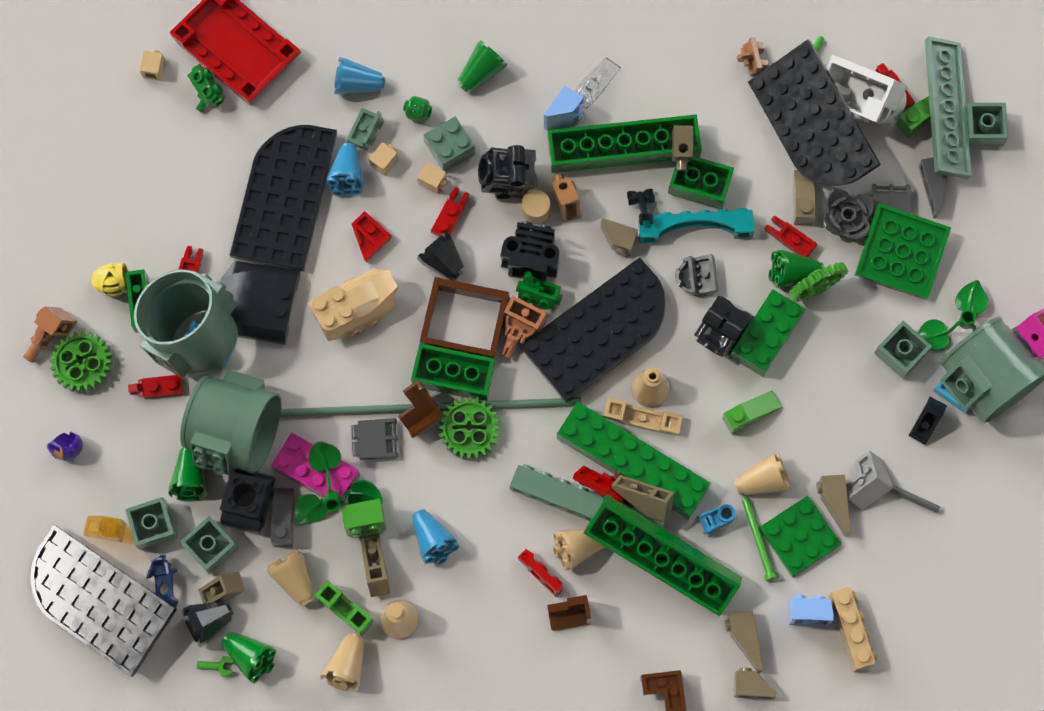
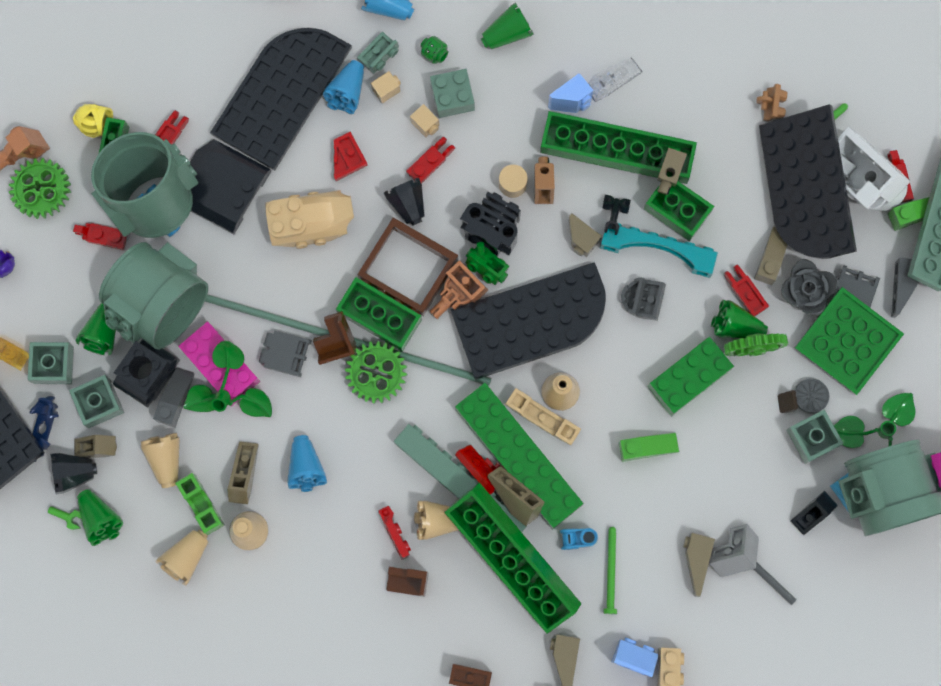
camera: 20 degrees right, 5 degrees up
(363, 518) = (246, 424): bright green brick -> none
(507, 171) = (496, 139): black piece -> none
(722, 326) = (648, 357): black piece -> none
(764, 477) = (637, 515): tan cone -> none
(799, 536) = (651, 581): green plate -> none
(866, 326) = (787, 402): none -> dark brown slope
(886, 313) = (812, 395): none -> dark grey wheel

